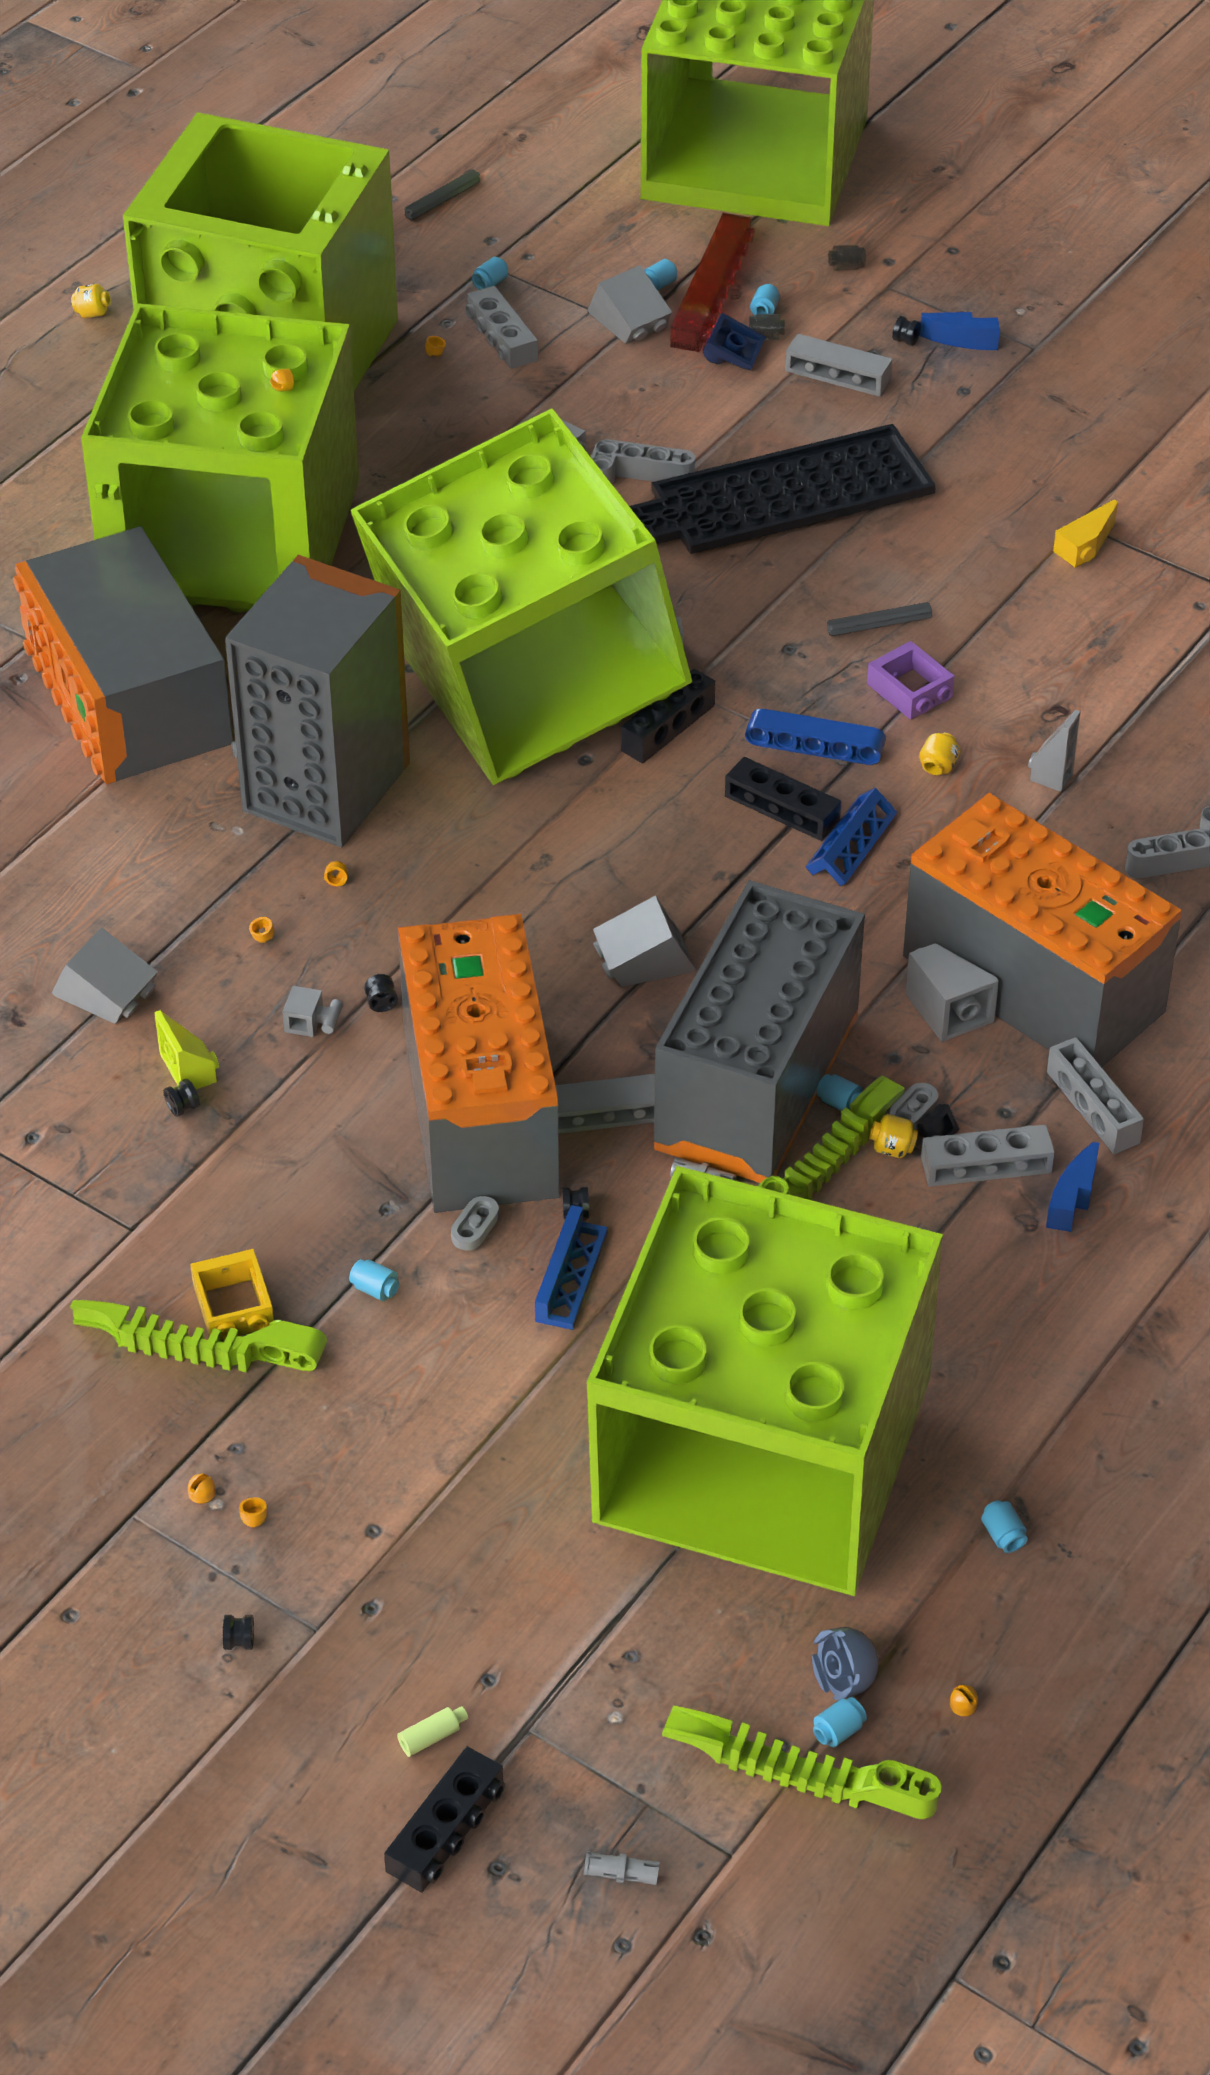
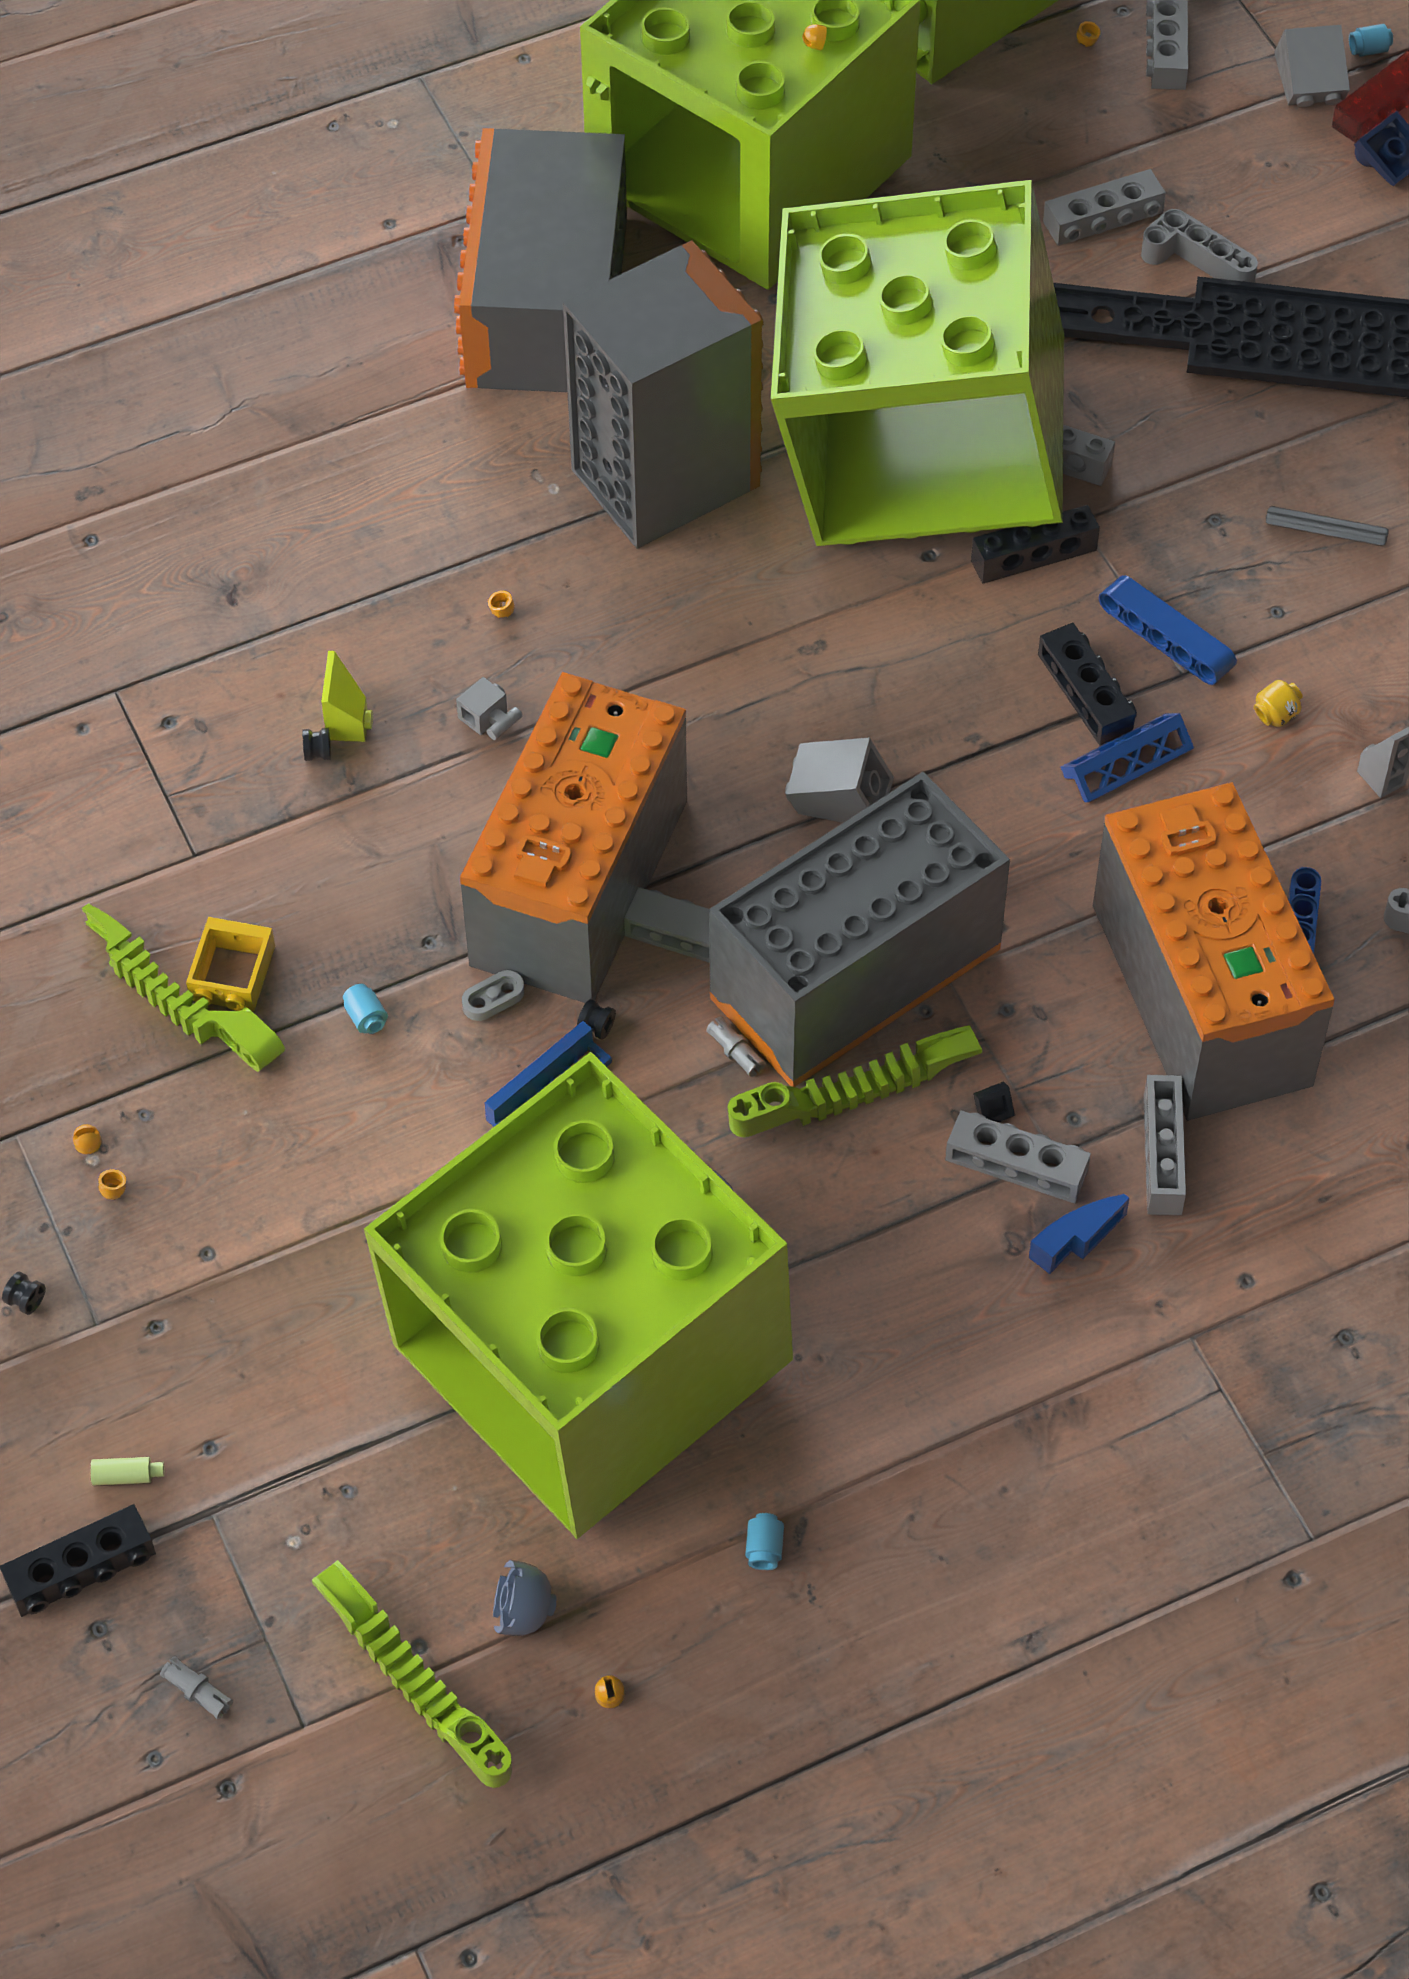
camera: 30 degrees right, 10 degrees up
(105, 978) = (326, 592): light grey slope -> none
(341, 876) = (604, 579): light orange hinge -> none
(837, 1091) = (920, 1020): medium azure brick -> none
(839, 1722) = (478, 1653): medium azure brick -> none
(885, 670) = (1307, 584): medium lavender window -> none
(893, 1136) = (940, 1093): yellow head -> none
(909, 1104) = (981, 1072): light grey plate -> none
(950, 991) = (1097, 969): light grey slope -> none

